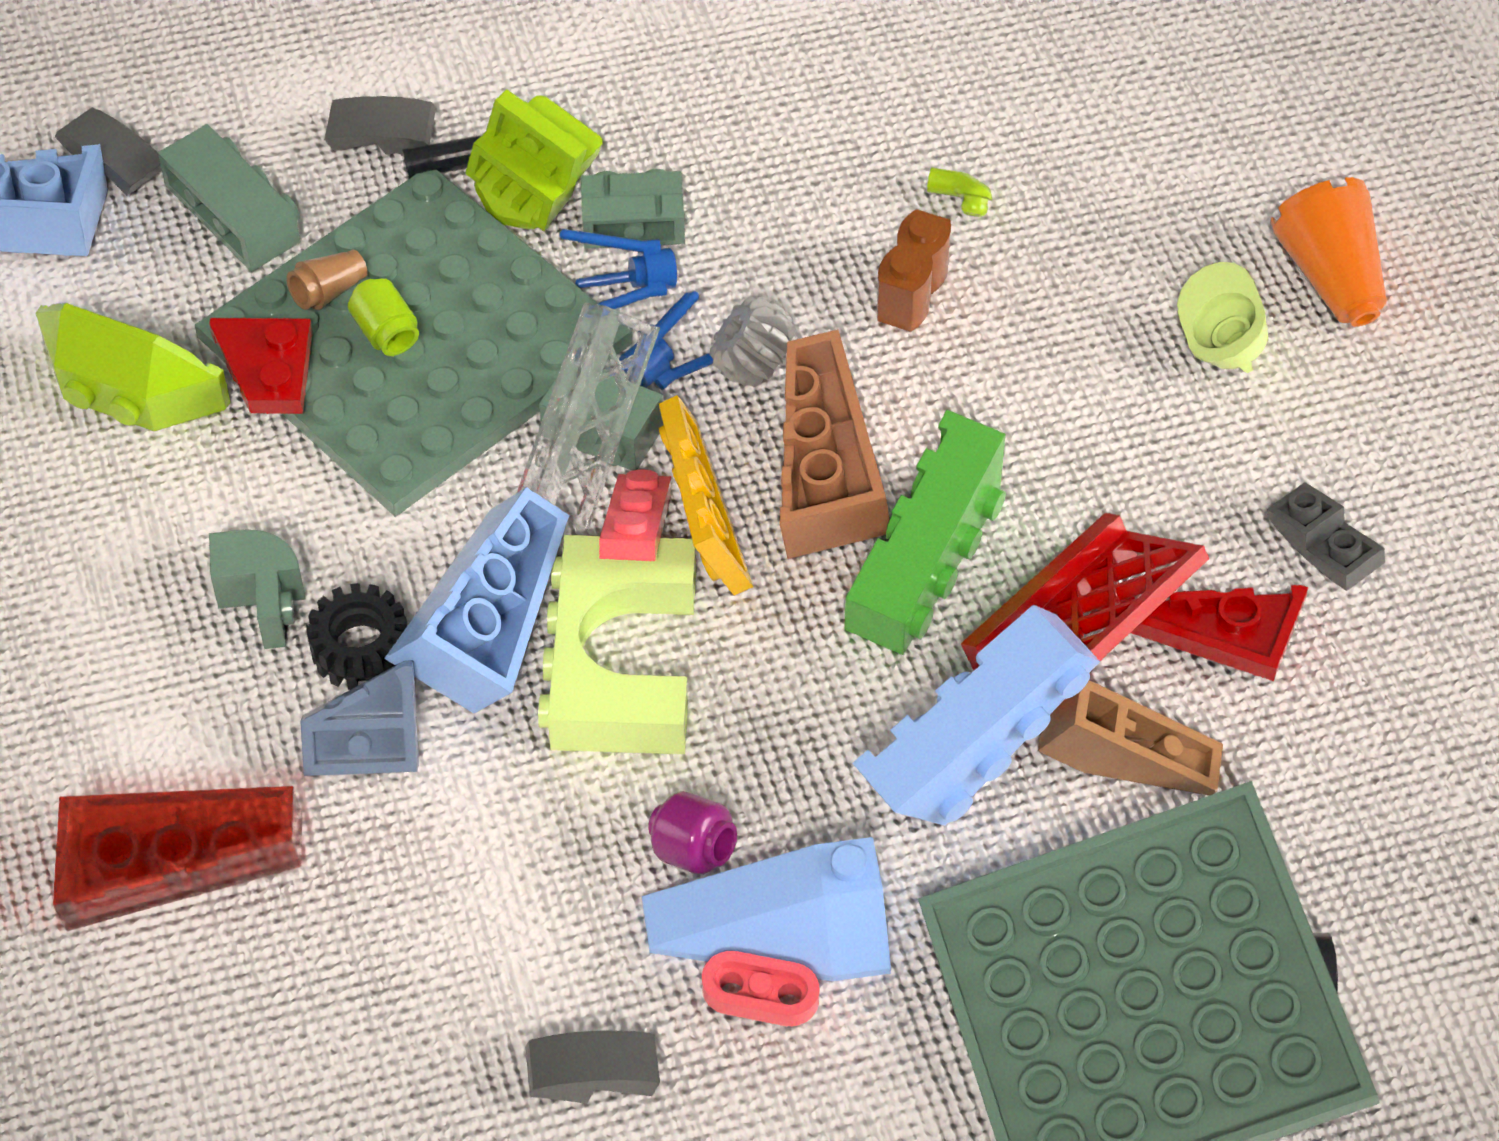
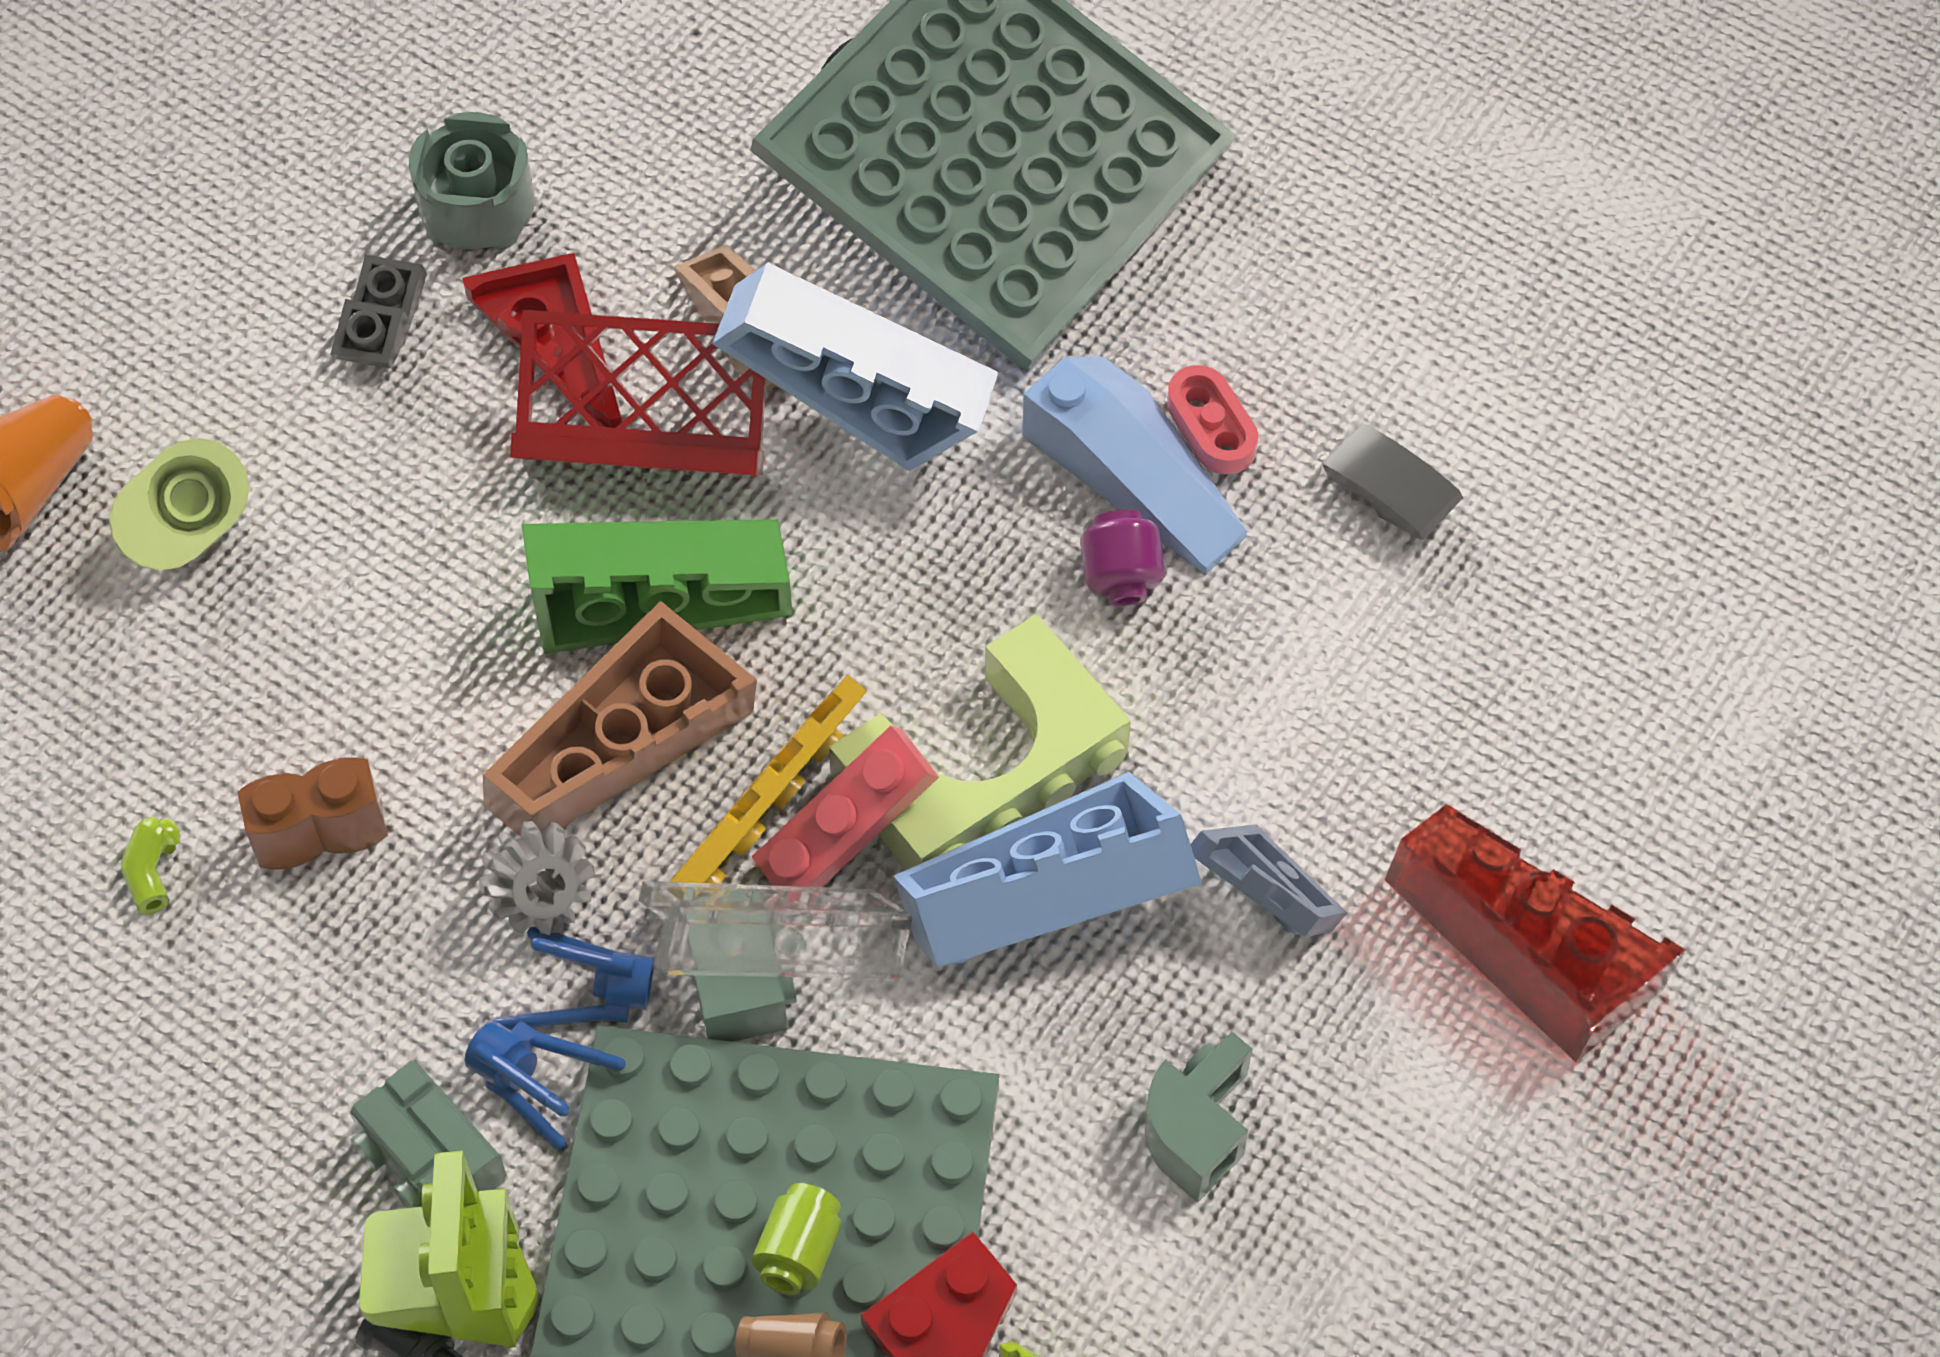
camera: 130 degrees left, 5 degrees up
(348, 612) = (1178, 945): black tyre -> none
(1397, 639) = (472, 182): none -> sand green brick

